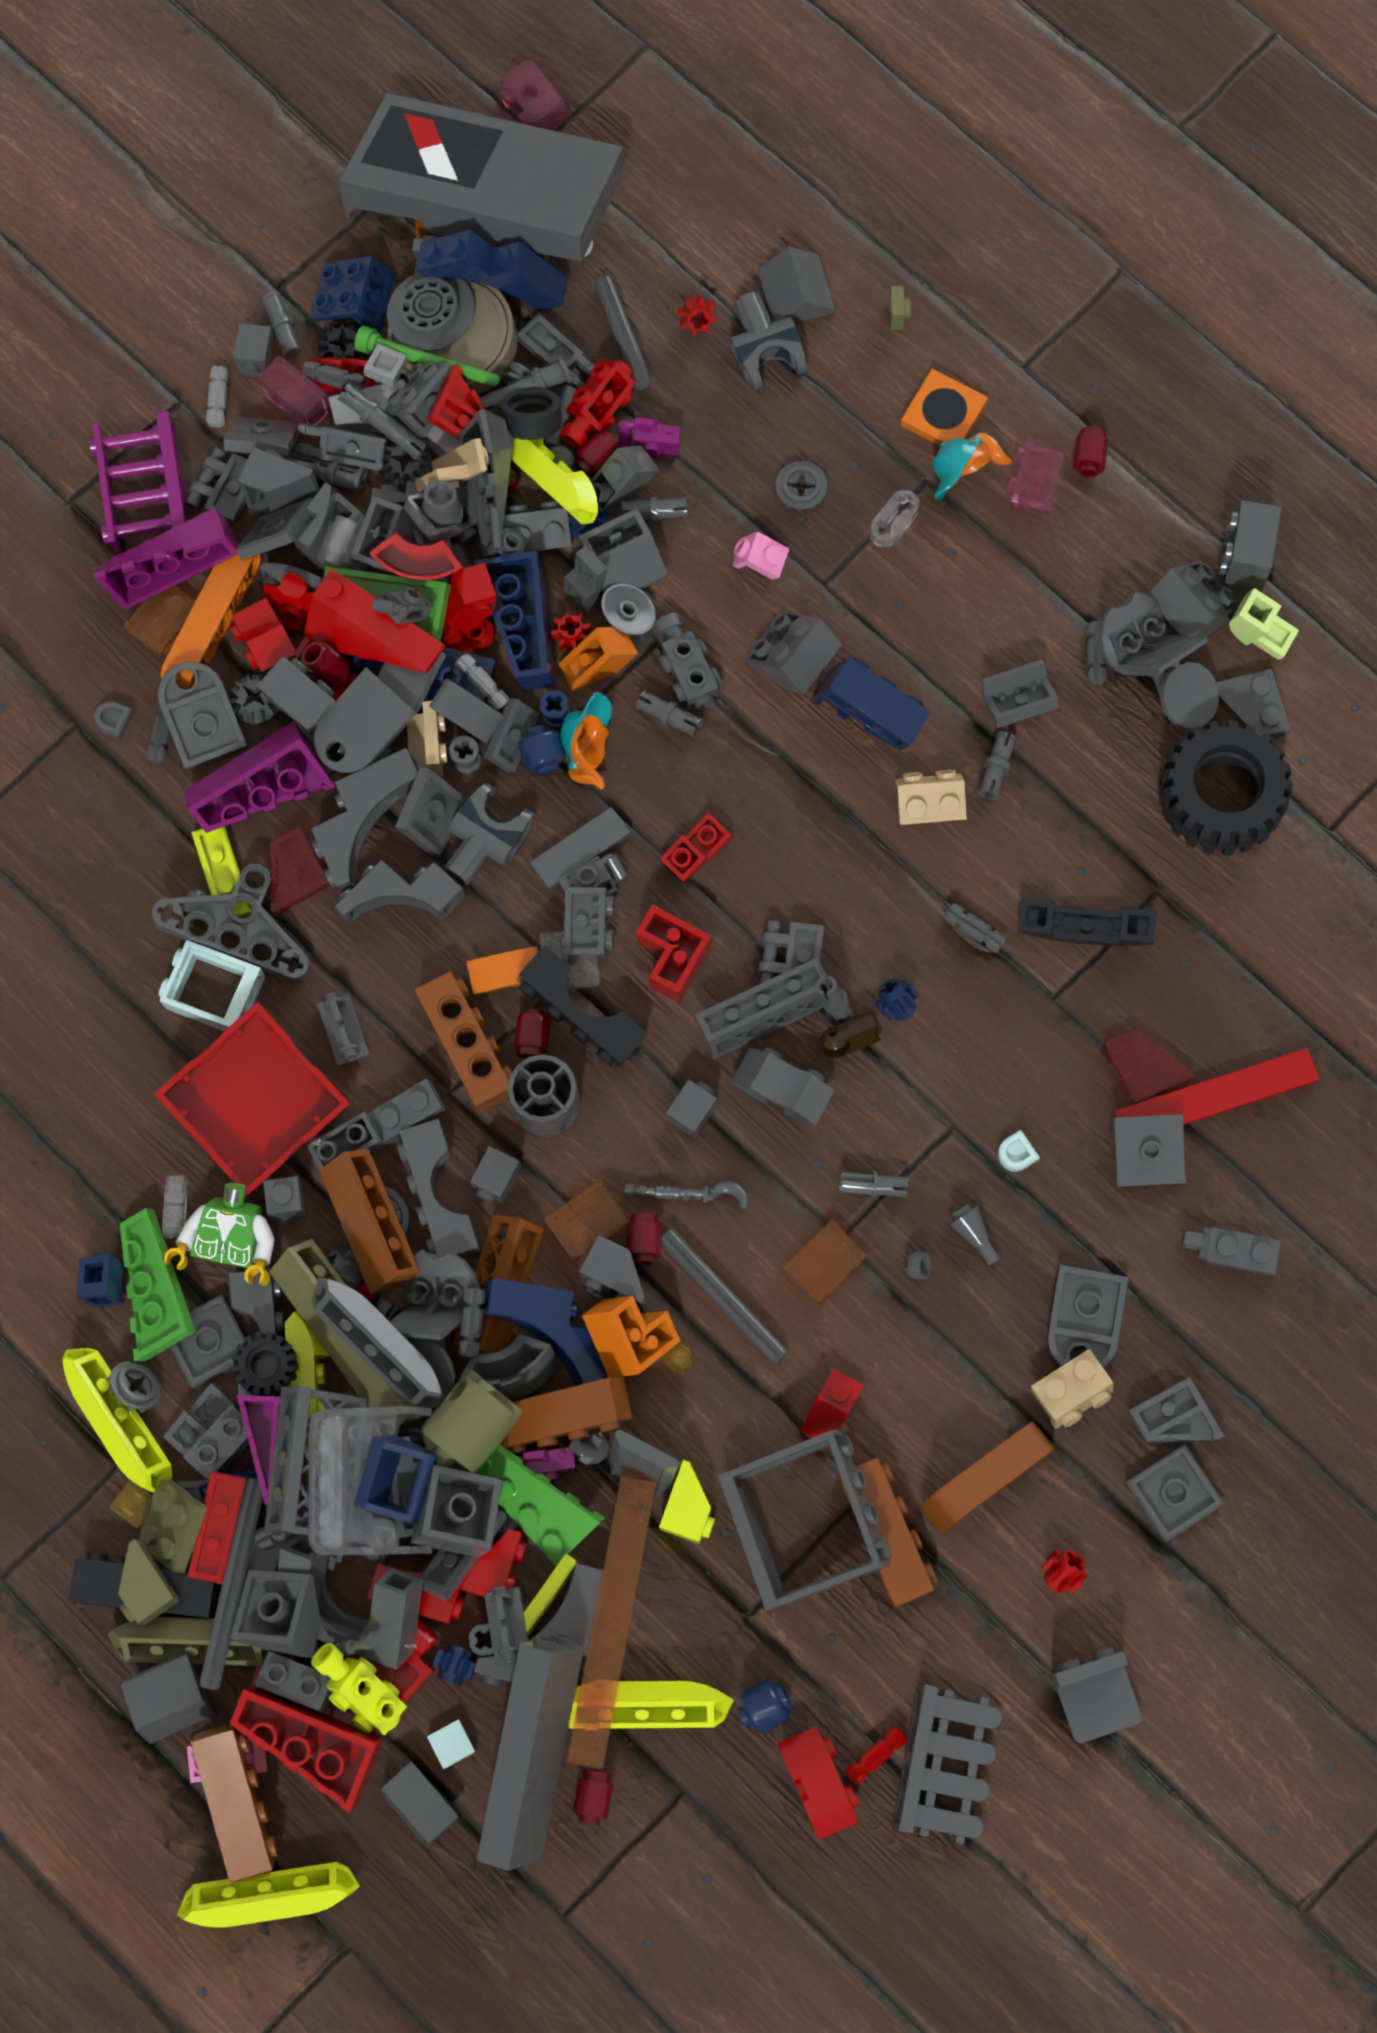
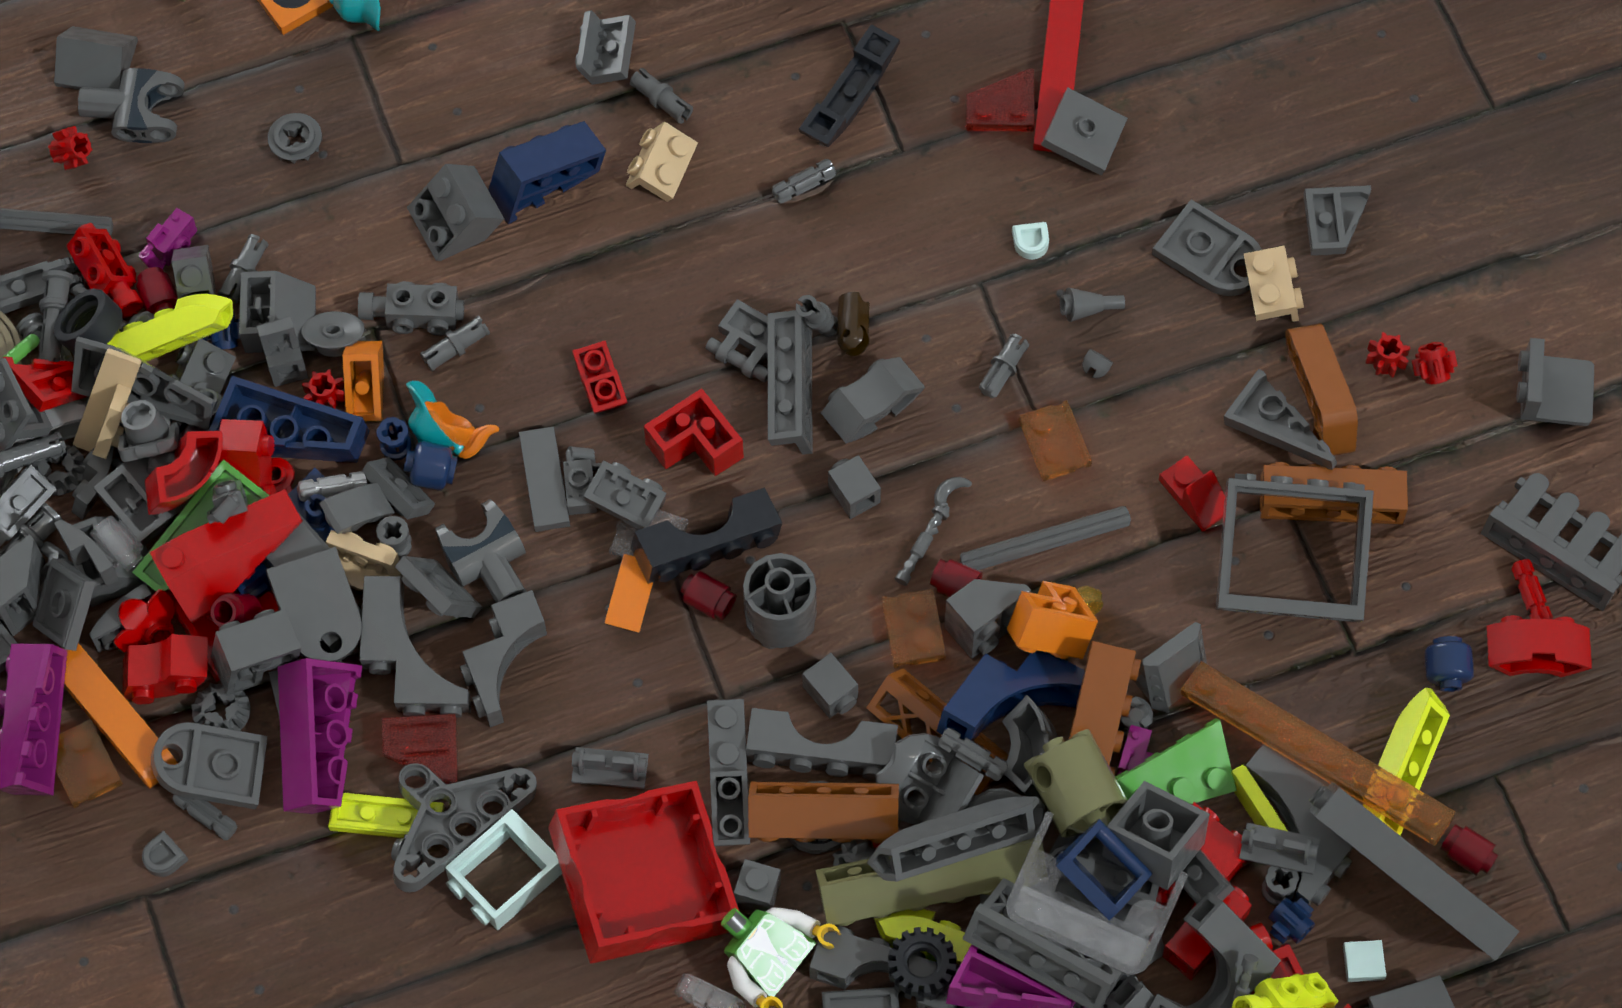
camera: 70 degrees left, 10 degrees down
(435, 999) = (669, 671): dark orange brick -> none
(687, 1508) = (1236, 651): neon yellow slope -> none
(760, 555) = (341, 199): bright pink bracket -> none
(888, 515) = (379, 73): clear beam -> none
(897, 999) = (840, 269): dark blue gear -> none
(934, 1442) = (1268, 417): none -> dark grey wing
(1062, 1518) = (1387, 345): none -> red gear
(1174, 1493) = (1401, 251): dark grey tile -> none
(1234, 1249) = (1205, 108): dark grey hinge -> none

